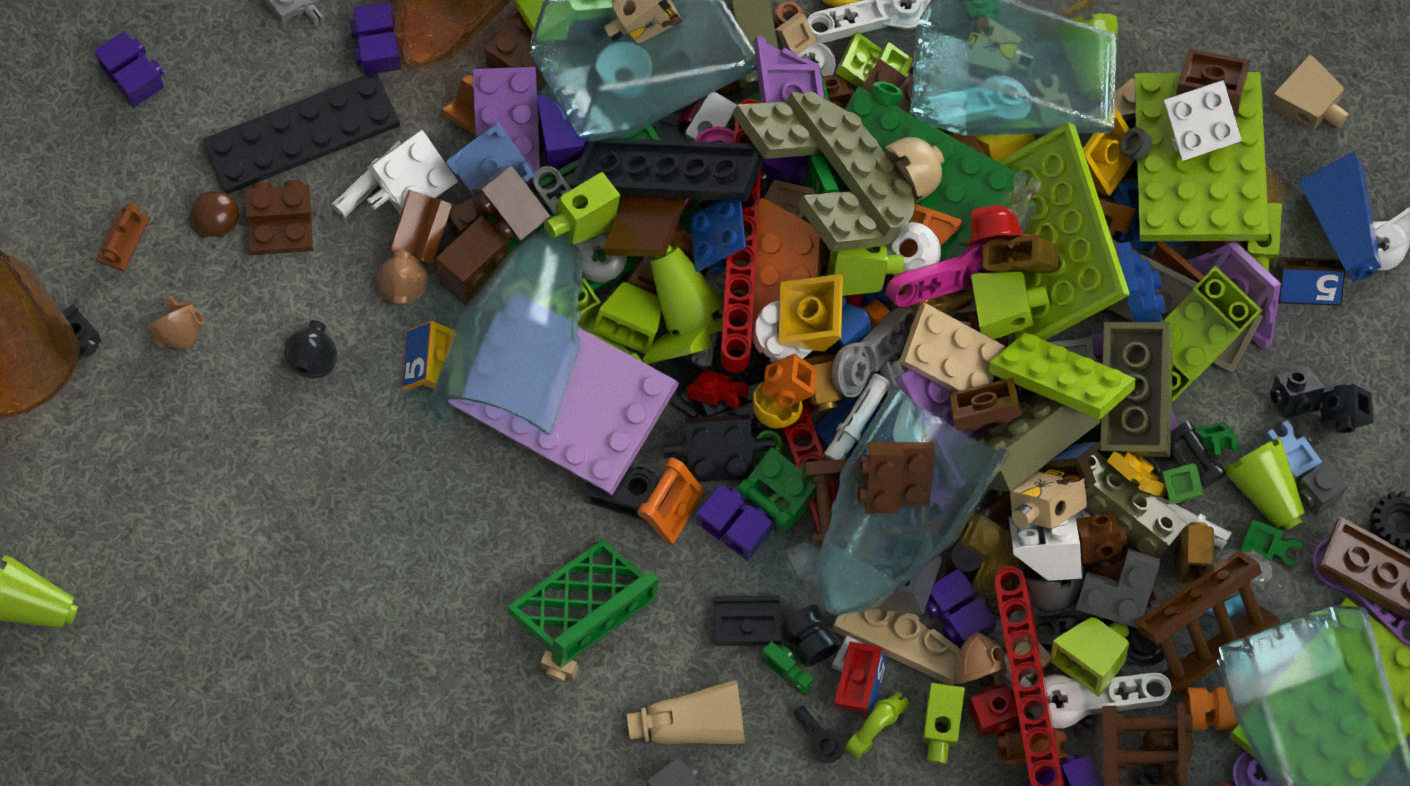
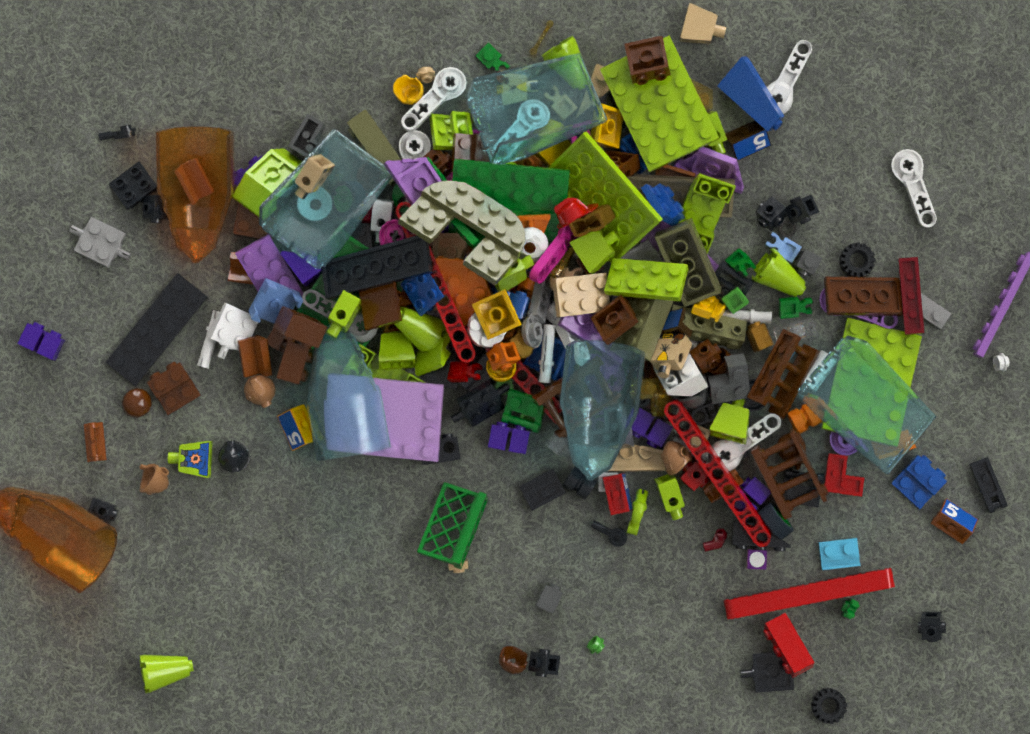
camera: 25 degrees left, 20 degrees up
(251, 325) = (193, 458): none -> torso
(376, 38) = (161, 246): dark purple piece -> none
(677, 505) = (471, 445): orange plate -> none
(699, 717) = (542, 556): tan piece -> none
(783, 9) = (383, 117): nougat plate -> none
(783, 663) = (571, 502): green plate -> none
(796, 33) = (399, 136): tan plate -> none
(886, 93) = (471, 156): green tile -> none
(896, 476) = (588, 389): reddish brown plate -> none
(917, 164) = (511, 196): tan cylinder -> none
(1019, 199) = (575, 188): clear plate -> none
(1136, 143) = (621, 116): dark grey tile -> none
(1202, 120) = (654, 90): white hinge -> none

